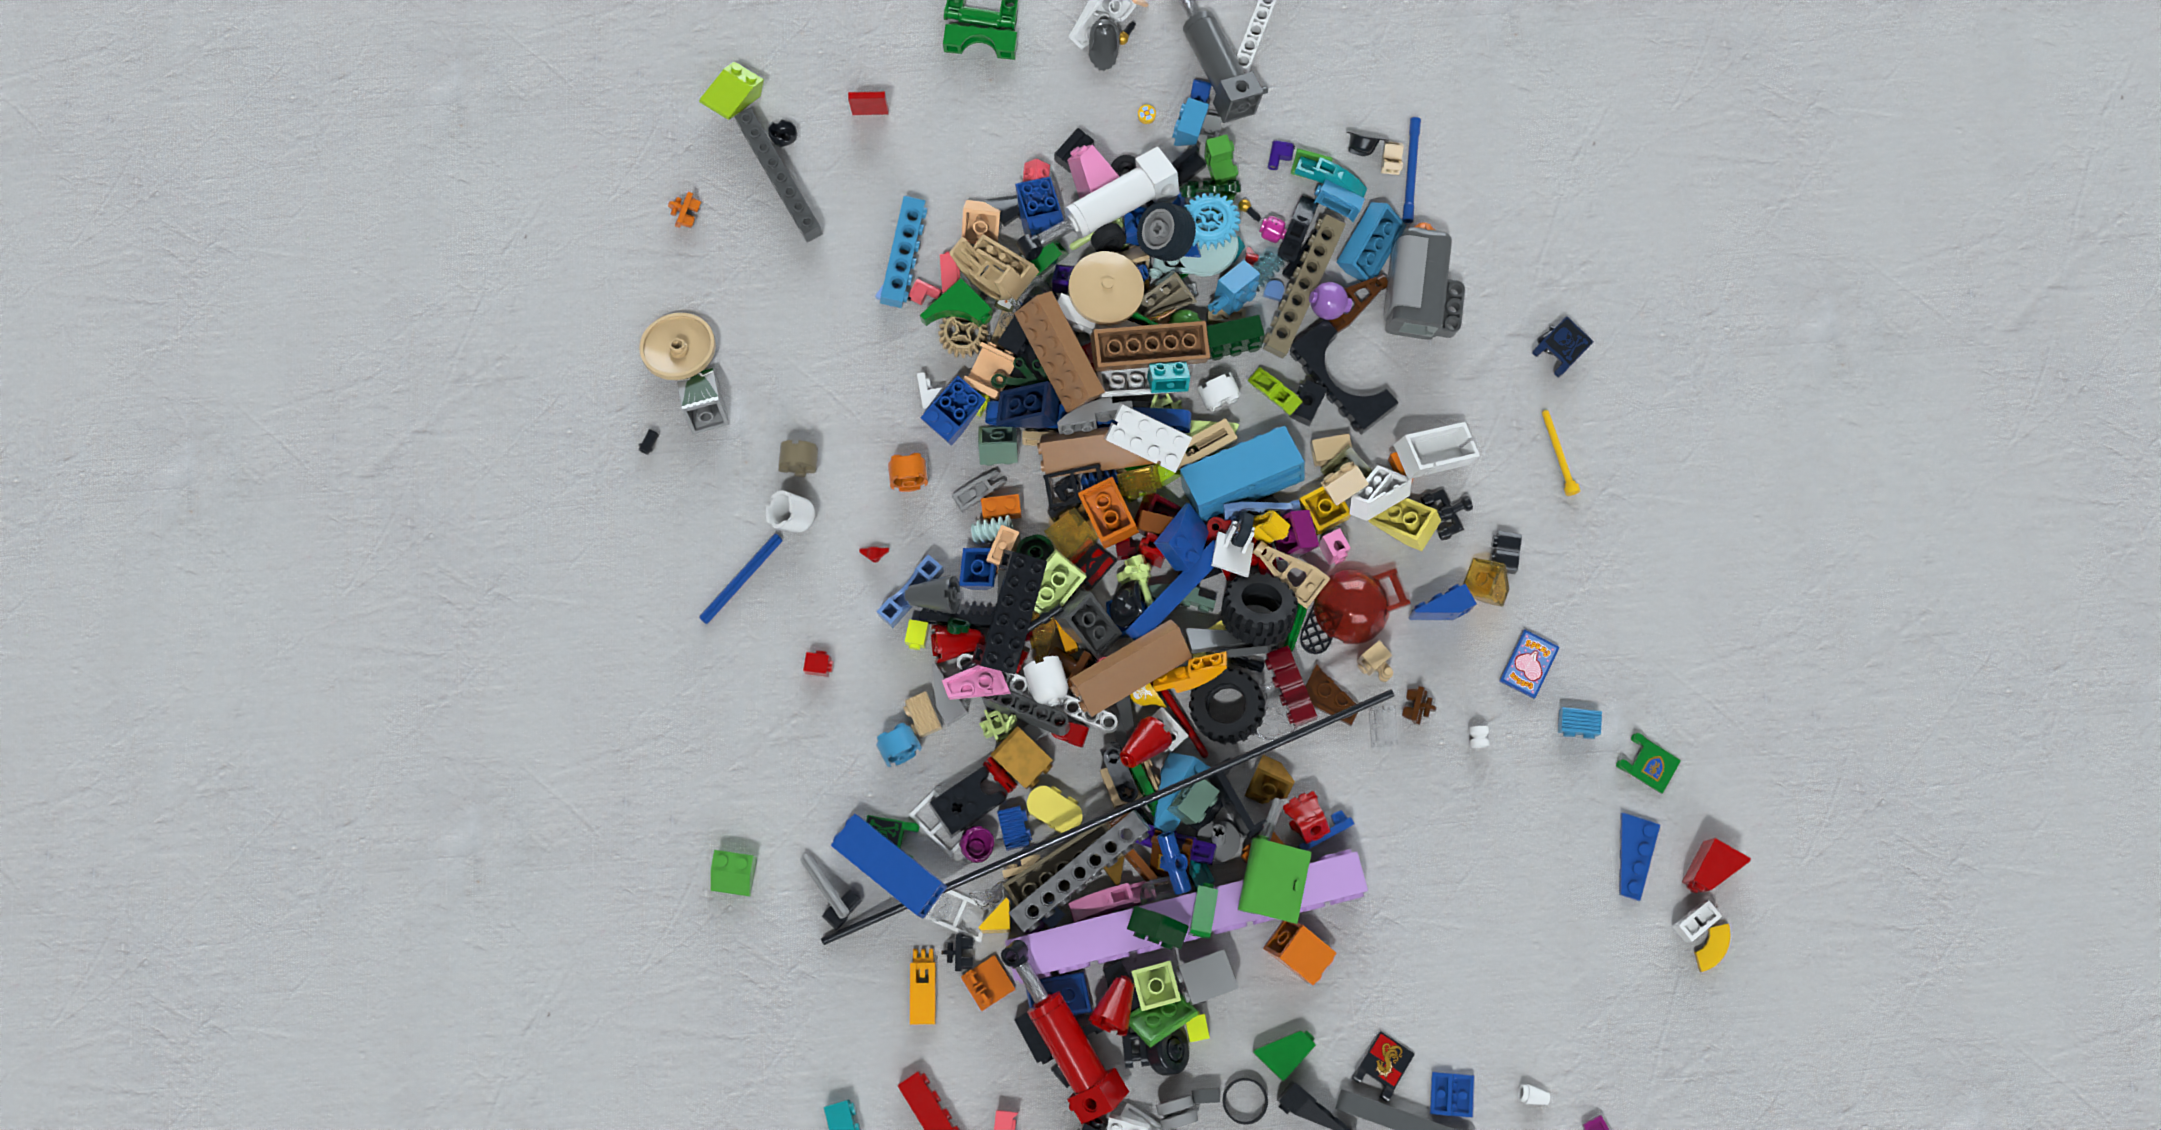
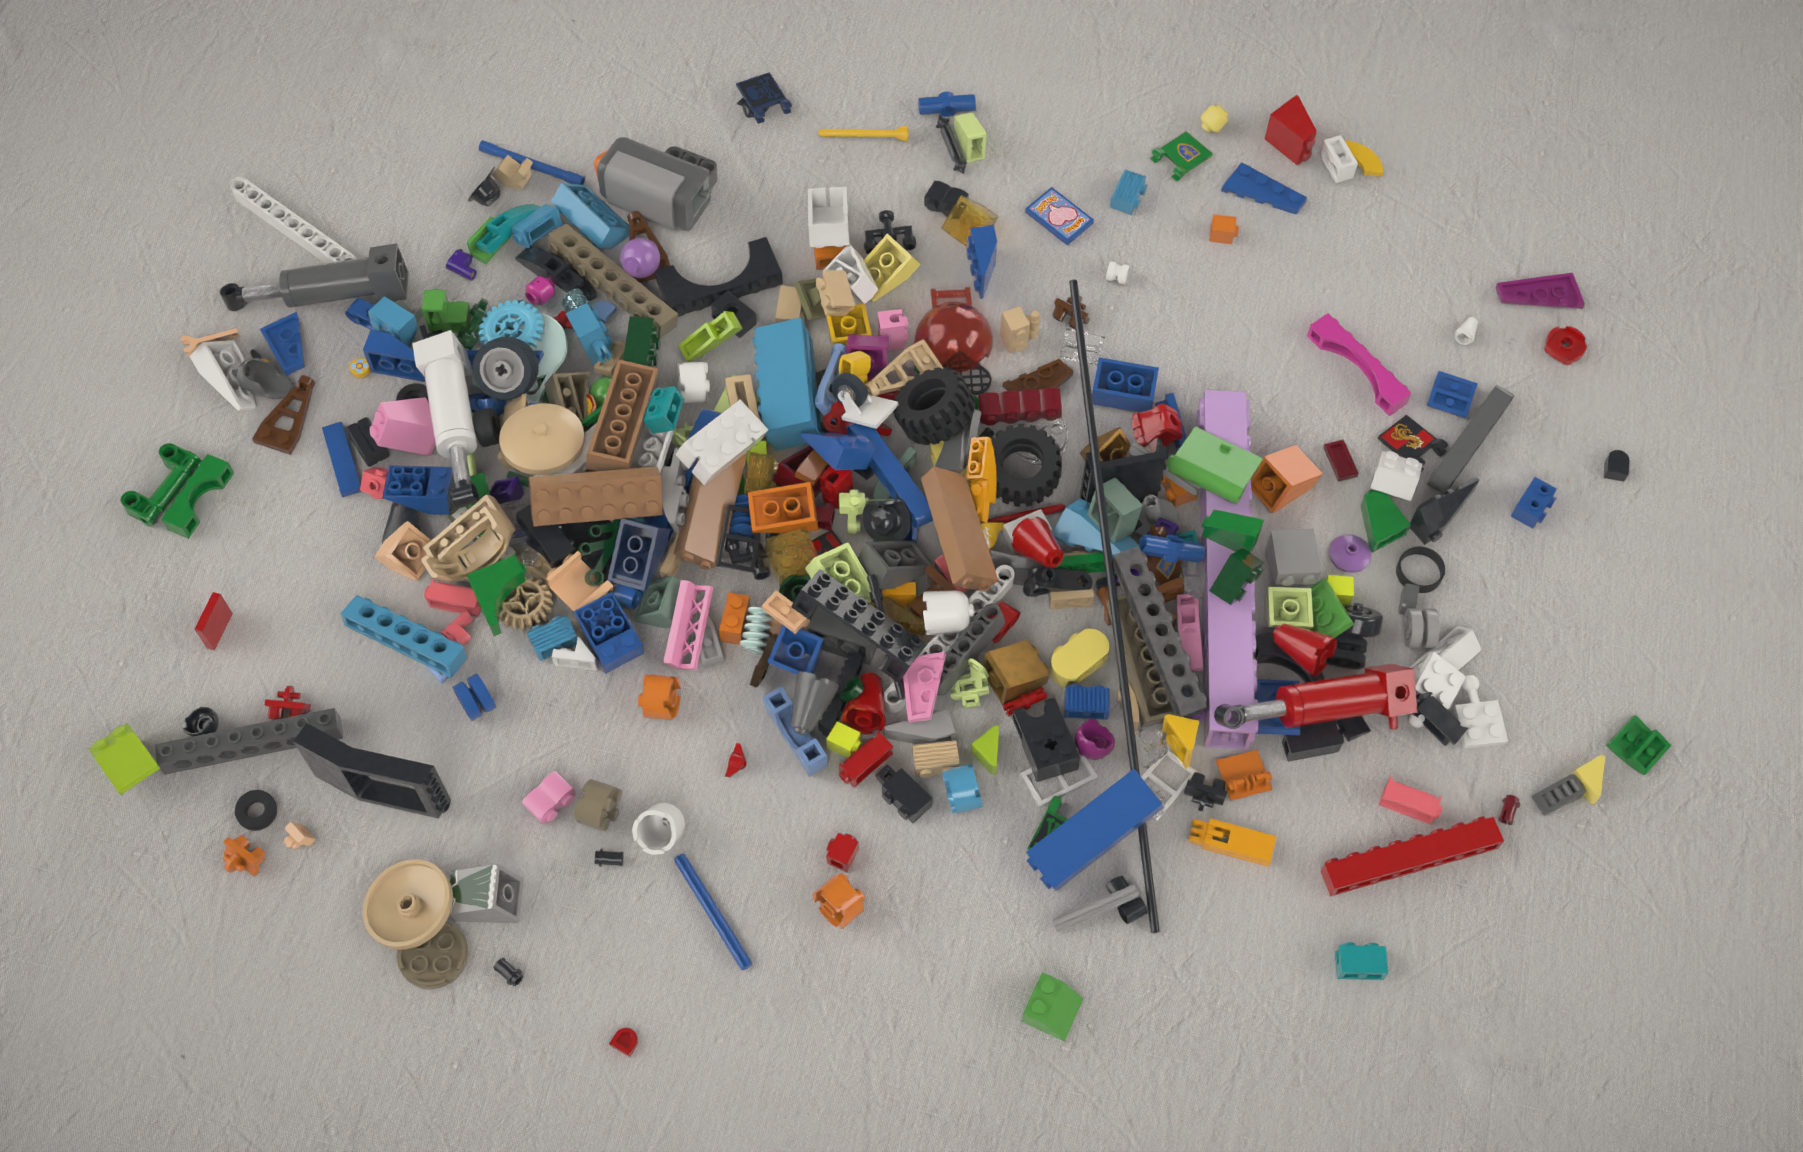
camera: 75 degrees left, 15 degrees down
(619, 549) = (625, 1041): none -> red tile
(645, 388) = (435, 961): none -> dark tan tile
(713, 244) = (298, 836): none -> light nougat tile
(726, 215) = (246, 801): none -> black tyre
(761, 482) = (609, 858): none -> black pin
(763, 262) = (350, 772): none -> black window
(770, 674) = (839, 901): none -> orange brick
(797, 418) = (549, 798): none -> bright pink brick
(820, 189) = (277, 707): none -> red hips
(863, 327) = (474, 697): none -> blue wheel
(883, 698) = (904, 793): none -> black brick
(904, 657) = (865, 760): none -> red window
(939, 367) = (553, 635): none -> dark azure brick
(944, 756) = (986, 749): none -> lime slope
(959, 544) = (761, 668): none -> dark brown tile
(979, 467) = (683, 625): none -> bright pink fence
(1053, 136) = (342, 459): none -> blue tile
(1056, 78) = (278, 438): none -> reddish brown plate
(1149, 45) = (286, 342): none -> blue wing
(1160, 128) = (390, 356): none -> blue slope
(1233, 1028) = (1347, 560): none -> medium lavender dish
(1332, 1056) = (1396, 475): none -> white piece
(1341, 1000) = (1340, 460): none -> dark red tile
(1349, 776) = (1124, 385): none -> blue brick
(1477, 961) = (1332, 337): none -> dark pink arch
(1568, 826) = (1223, 229): none -> orange brick
(1576, 538) = (951, 144): none -> black wheel
(1589, 551) = (970, 136): none -> yellowish green slope
(1622, 519) = (947, 104): none -> blue piece
(1702, 784) = (1214, 118): none -> light yellow head

